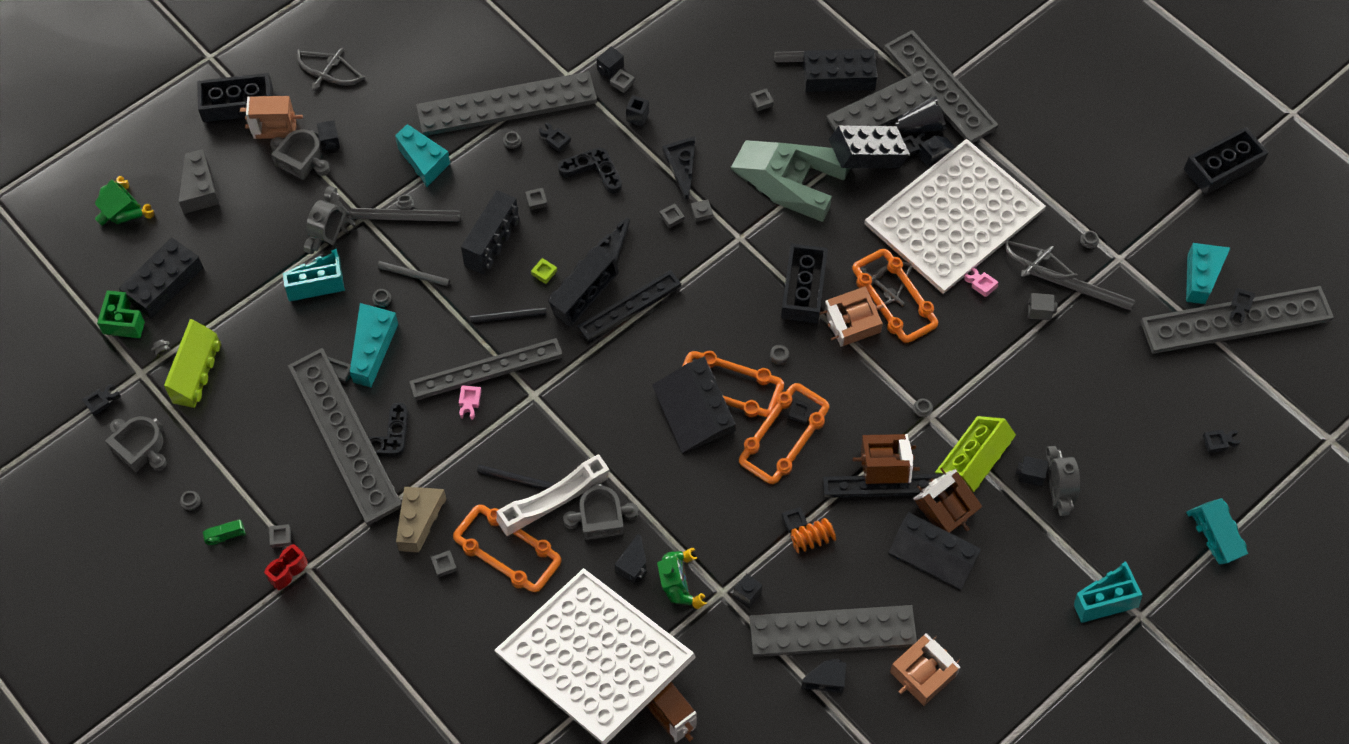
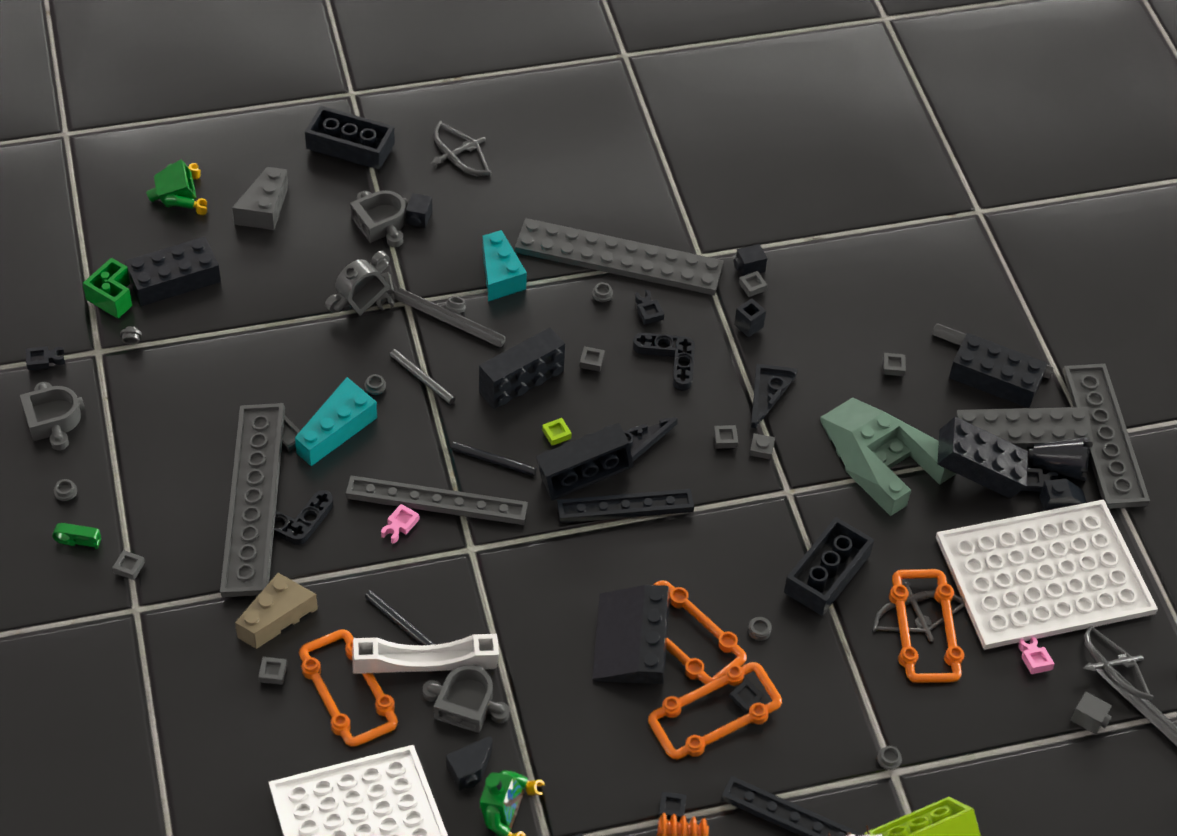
camera: 25 degrees right, 10 degrees down
(192, 364) = (147, 362): lime slope -> none
(270, 116) = (370, 166): nougat piece -> none
(289, 564) = (113, 596): red brick -> none
(314, 279) = (319, 337): teal wedge -> none
(859, 314) = (871, 624): nougat piece -> none
(887, 458) = (813, 789): reddish brown piece -> none

